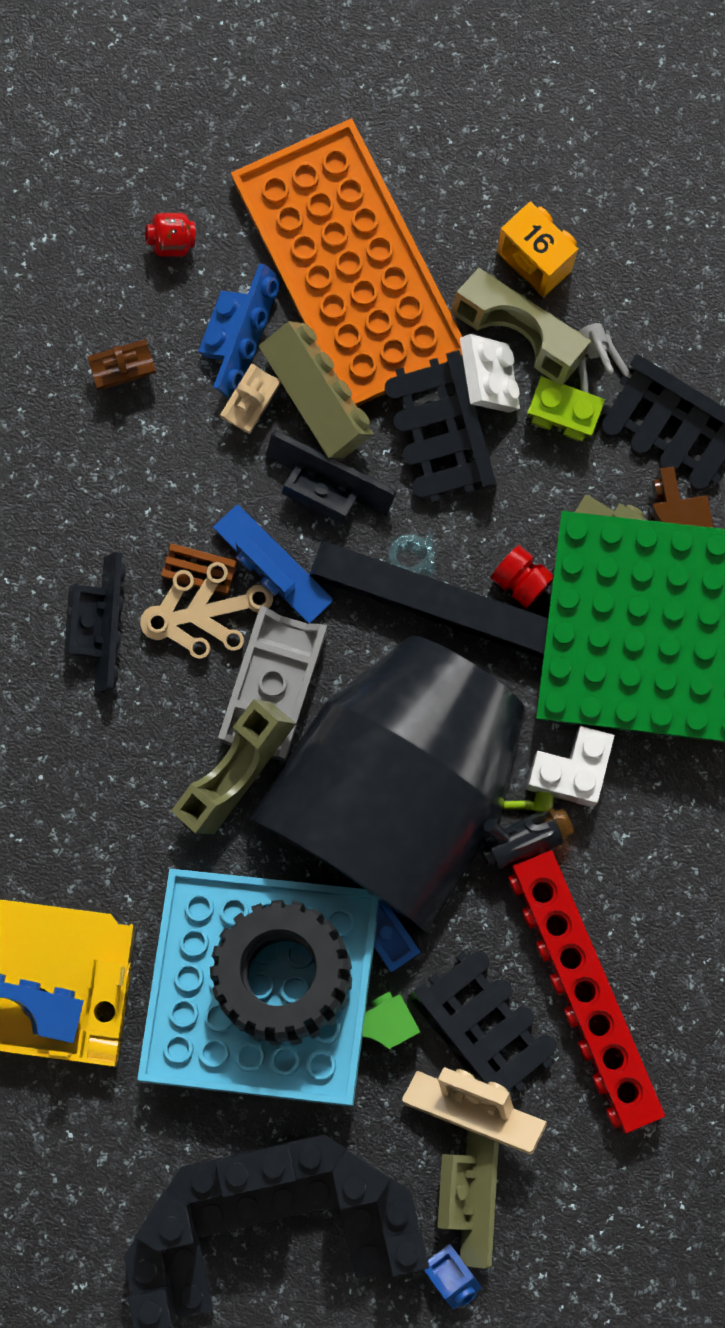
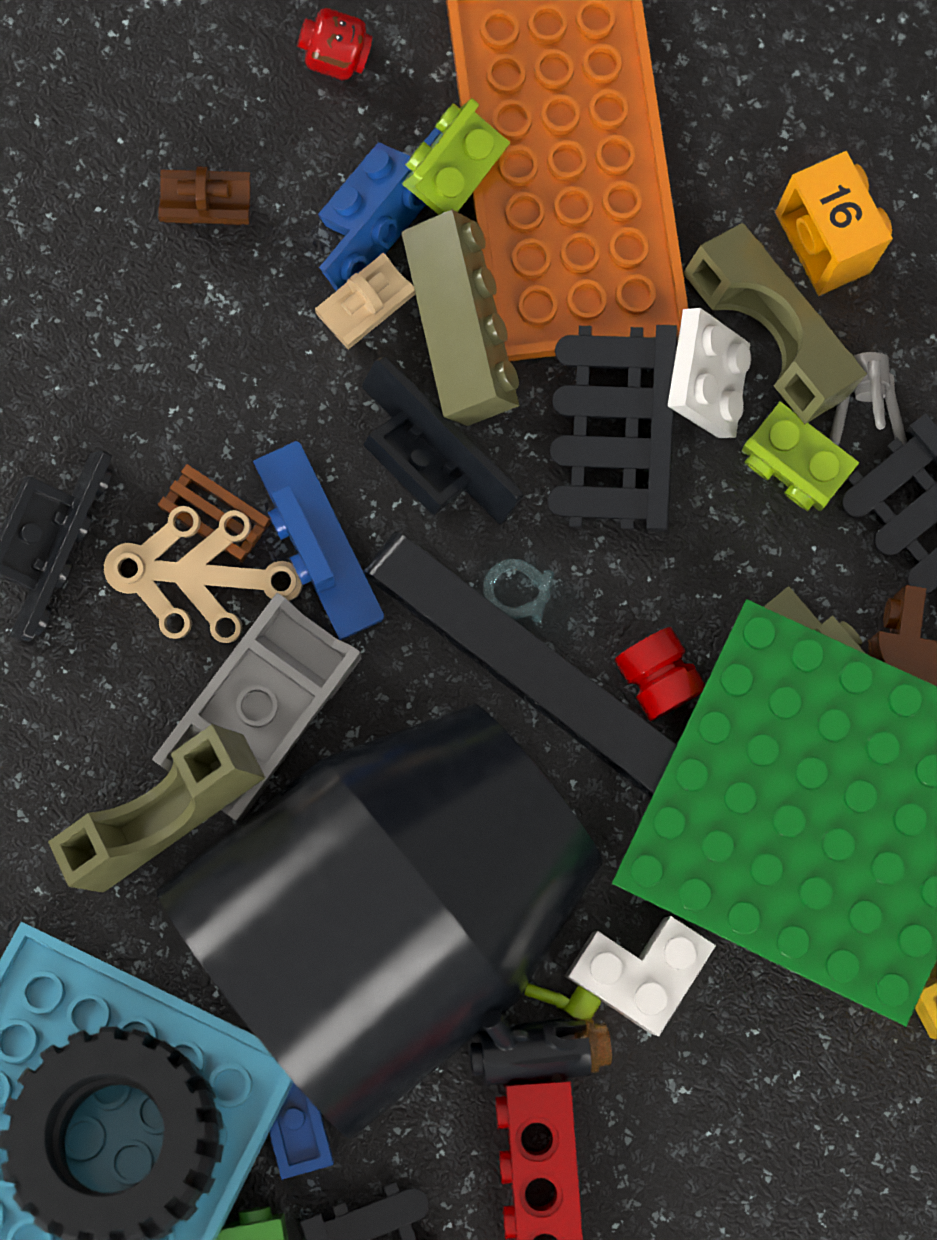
camera: 15 degrees right, 0 degrees up
(278, 287) = (457, 159): none -> lime bracket

